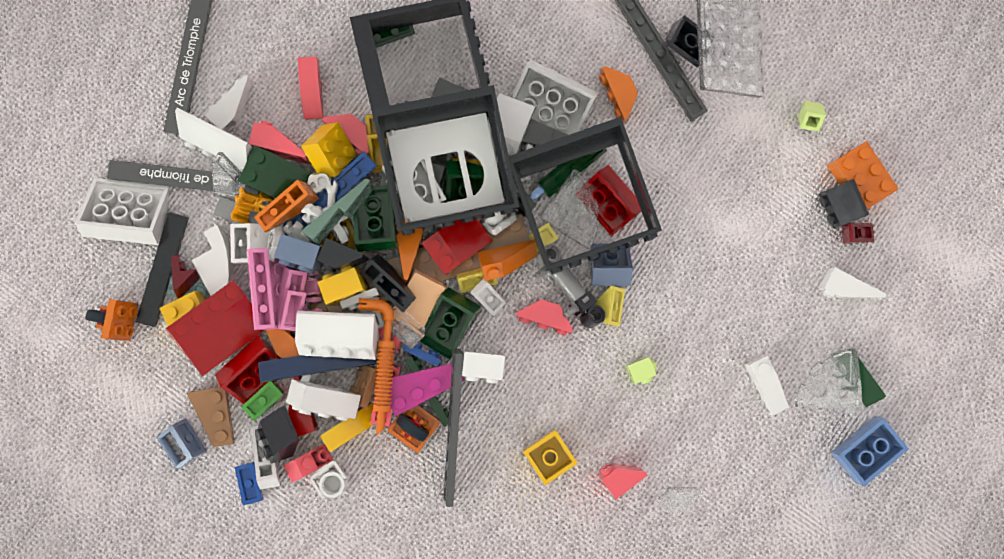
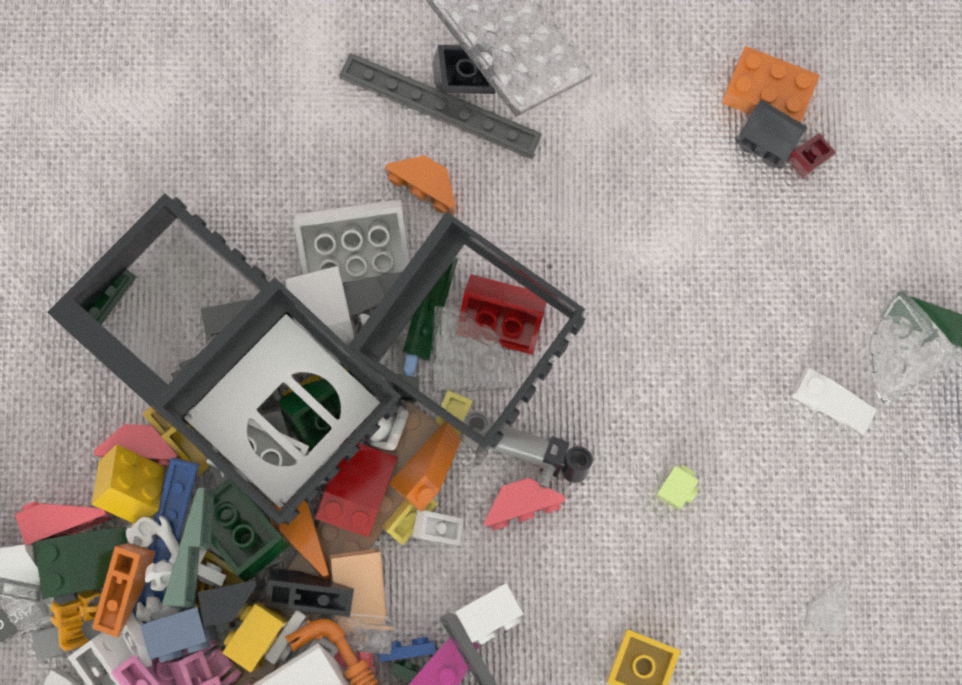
camera: 30 degrees left, 5 degrees down
(310, 87) = (54, 426): coral slope -> none
(449, 322) = (412, 590): dark green slope -> none
(612, 269) = (560, 392): sand blue slope -> none
(612, 303) = (589, 433): light yellow slope -> none
(620, 477) = (742, 631): coral slope -> none
(811, 116) = (663, 59): yellowish green brick -> none
(842, 285) = (835, 227): white slope -> none

